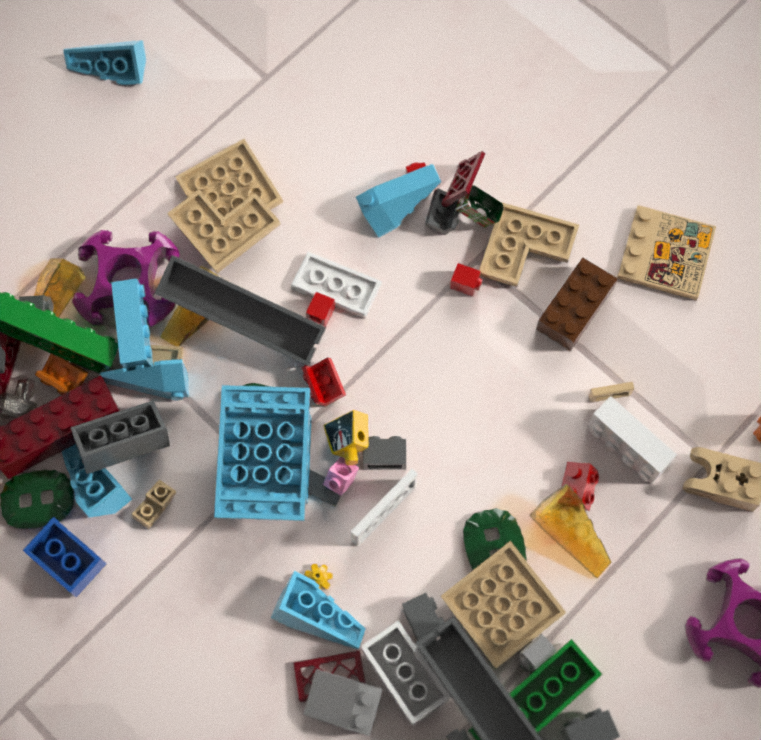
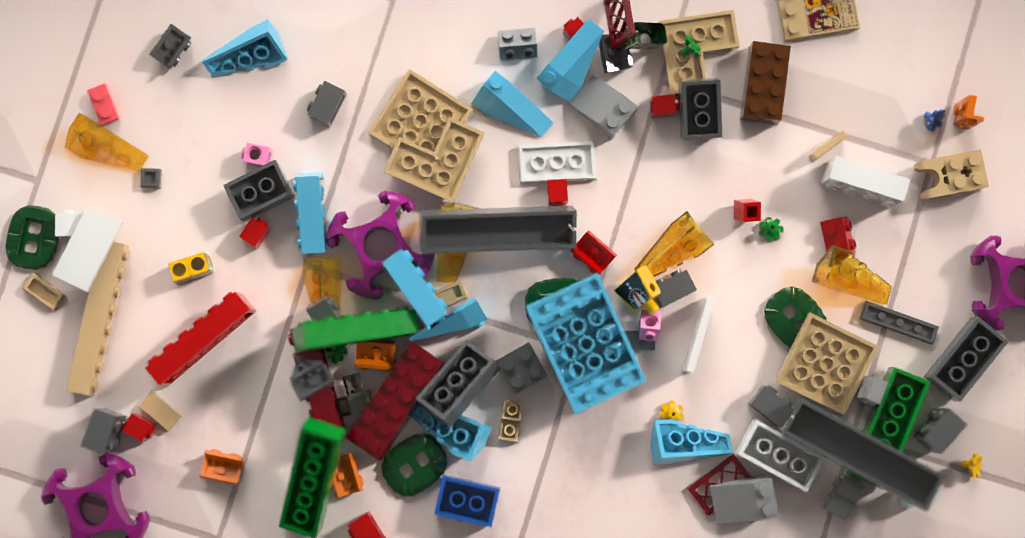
camera: 30 degrees left, 15 degrees up
(20, 214) = (255, 232): none -> red brick
(28, 354) = (335, 353): none -> green plant
(45, 26) = (170, 46): none -> dark grey bracket
(45, 178) = (259, 191): none -> dark grey brick
(66, 156) = (265, 154): none -> bright pink brick
(80, 217) = (311, 212): none -> medium azure wedge
(152, 135) = (326, 103): none -> dark grey brick
(192, 456) = (521, 368): none -> dark grey brick
(316, 209) = (506, 103): none -> medium azure wedge
(356, 164) = (517, 44): none -> dark grey bracket
(408, 256) = (603, 106): none -> light grey slope
(413, 414) = (679, 242): none -> clear yellow wedge
(497, 412) = (747, 210): none -> red brick
(498, 294) = (700, 108): none -> dark grey brick
(514, 446) = (768, 232): none -> green plant
(519, 236) = (691, 47): none -> green plant
(601, 602) = (899, 322): none -> dark grey tile
(654, 672) = (966, 359): none -> dark grey brick
(734, 417) = (934, 119): none -> blue plant

